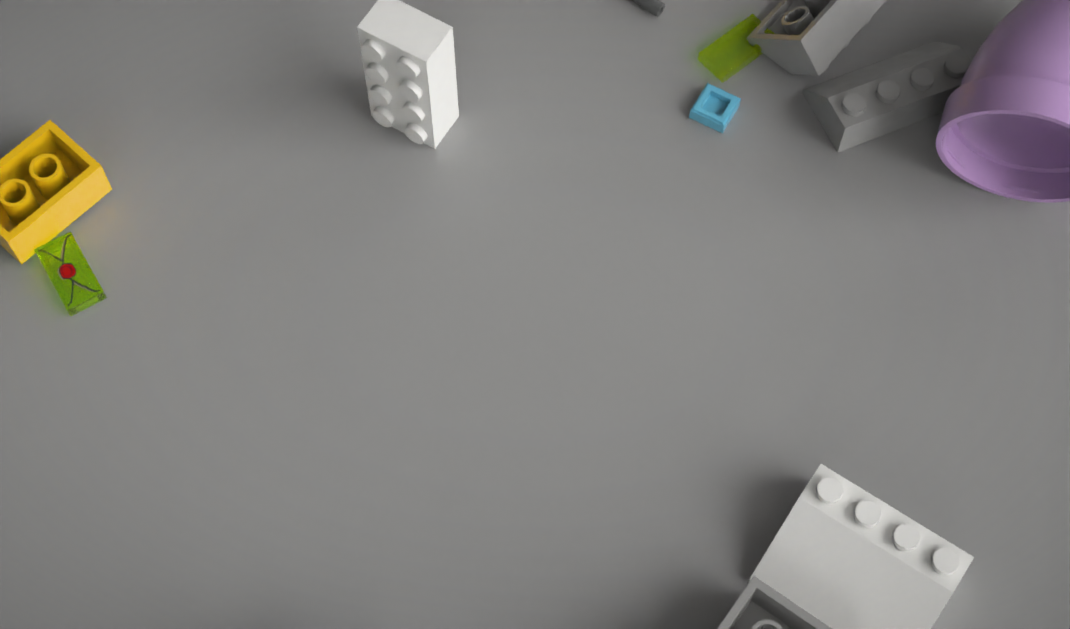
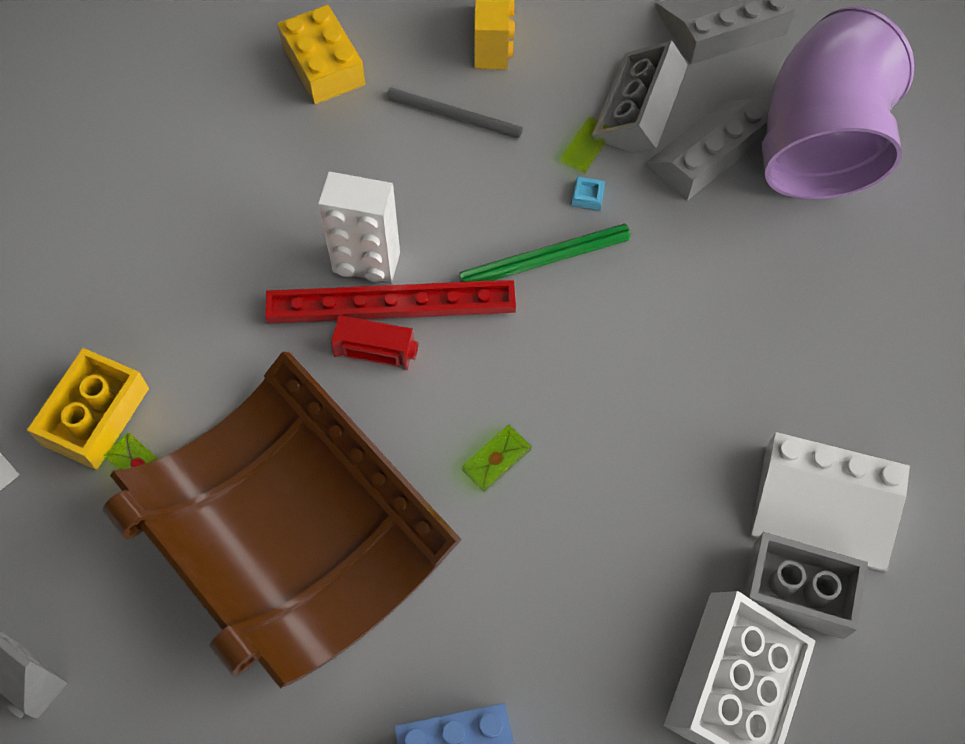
camera: 20 degrees left, 0 degrees up
(200, 393) = (285, 526): none -> reddish brown panel
(384, 211) = (374, 341): none -> red window
(425, 170) = (390, 301): none -> red plate
(477, 391) = (496, 458): none -> clear neon green tile
(631, 168) = (547, 254): none -> green axle

